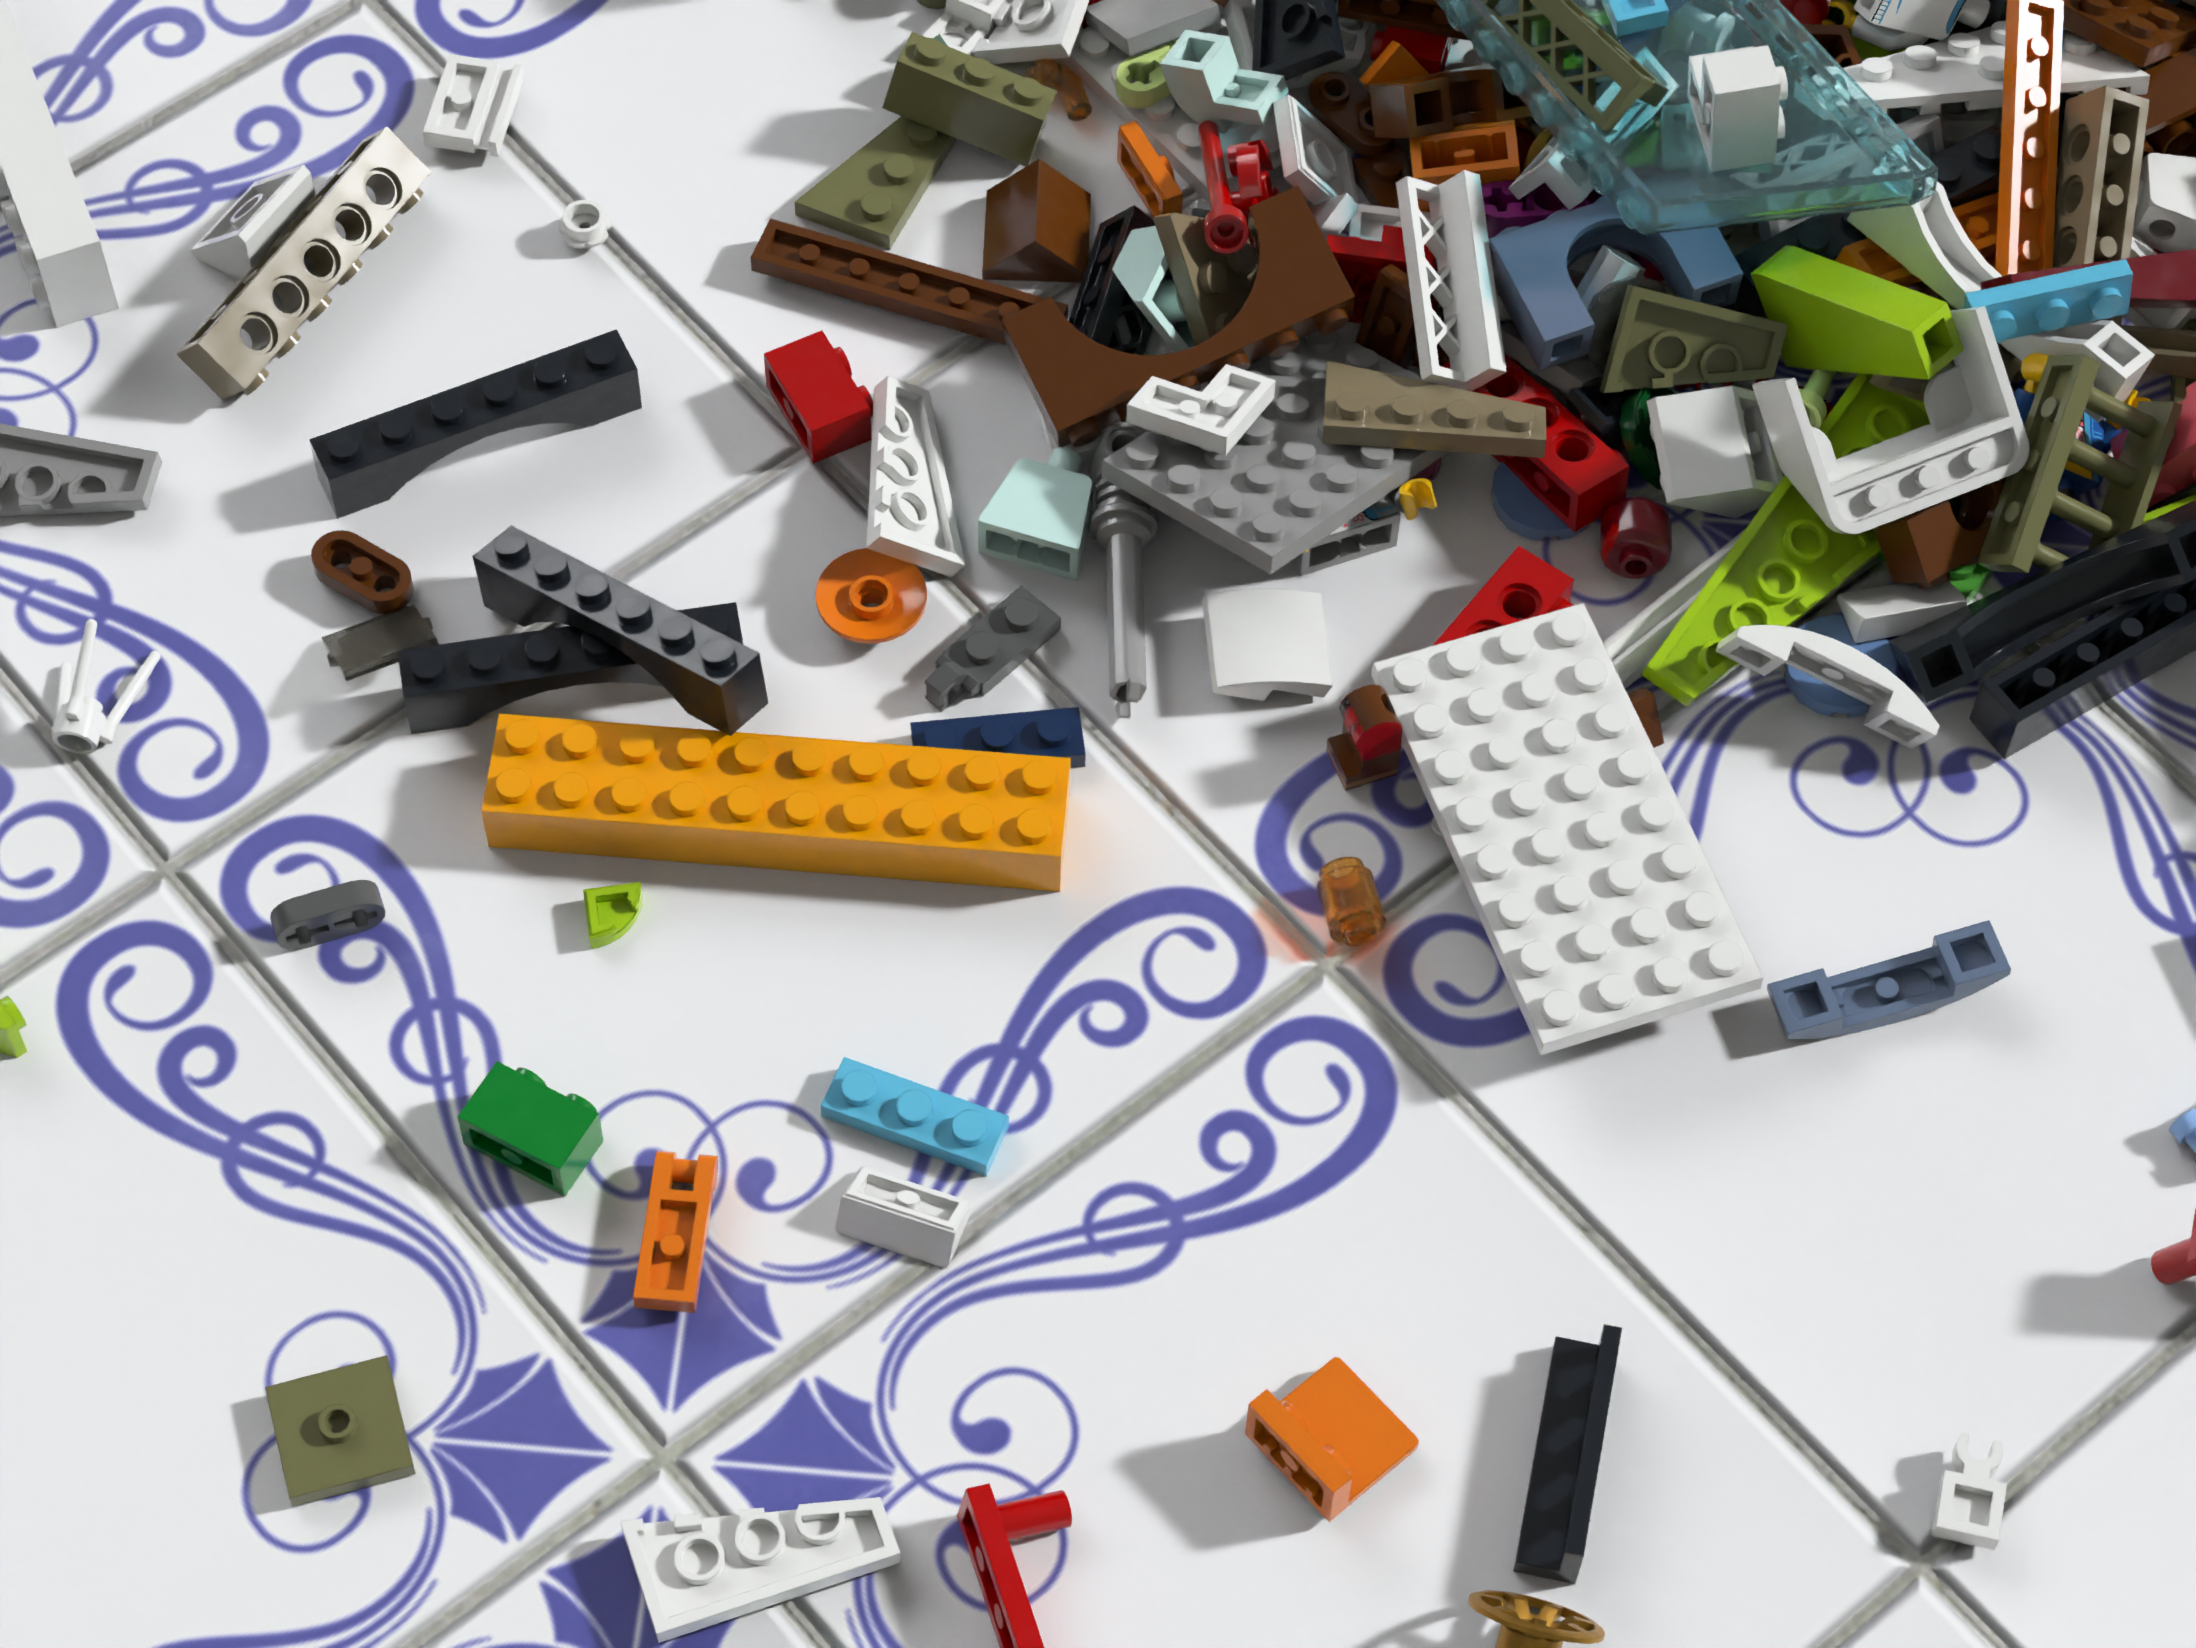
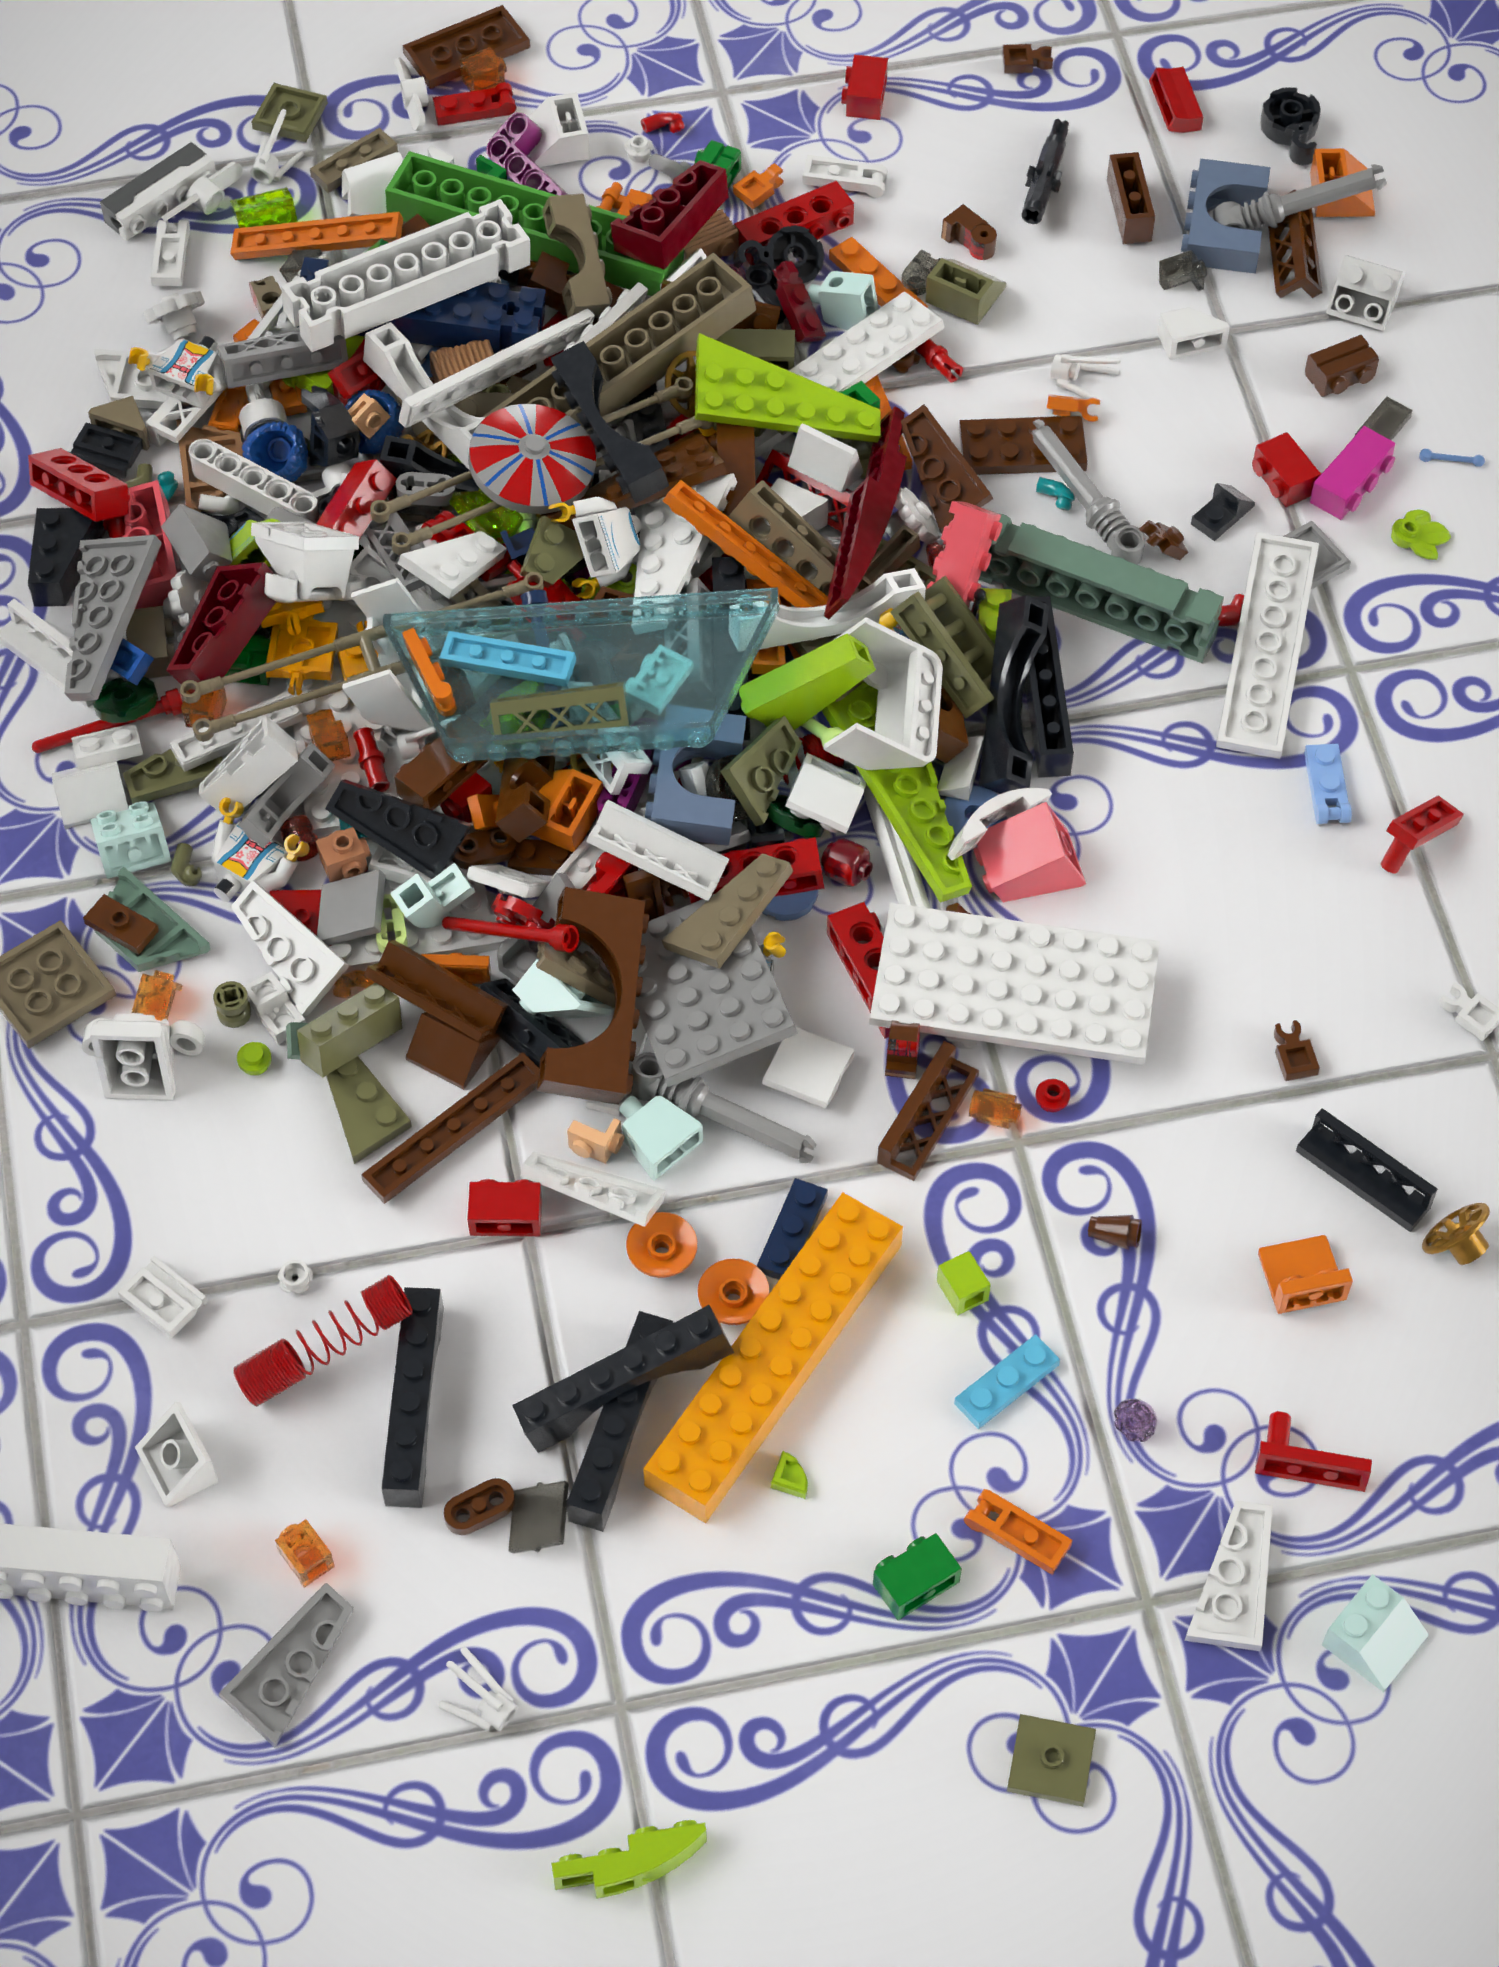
camera: 60 degrees left, 0 degrees up
(191, 414) = (311, 1564): none -> clear orange brick
(217, 348) = (233, 1439): brick -> none
(327, 914) = (713, 1625): dark grey beam -> none
(441, 260) = (281, 1367): none -> red piece
(849, 692) = (728, 1278): none -> orange dish
(877, 36) = (254, 1058): none -> lime plate
(902, 1216) = (1065, 1415): white slope -> none
(944, 1307) = (1135, 1419): none -> clear purple plate
(988, 461) = (593, 1143): none -> light nougat bracket
(992, 648) = (727, 1202): dark grey hinge -> none
(1028, 984) = (963, 1282): none -> lime panel
(1094, 169) = (437, 991): none -> reddish brown fence
(1205, 418) = (674, 1012): white plate -> none
(1247, 1150) = (1116, 1230): none -> reddish brown cone
(1293, 802) = (919, 1102): none -> reddish brown fence
(1421, 983) = (1052, 1103): none -> red plate
(1716, 1270) = (1295, 1056): none -> reddish brown plate
(1737, 106) = (666, 653): white brick -> none
(1814, 760) = (1028, 856): none -> coral slope
(1891, 989) = (1178, 891): sand blue slope -> none
(2056, 300) = (865, 587): medium azure plate -> none

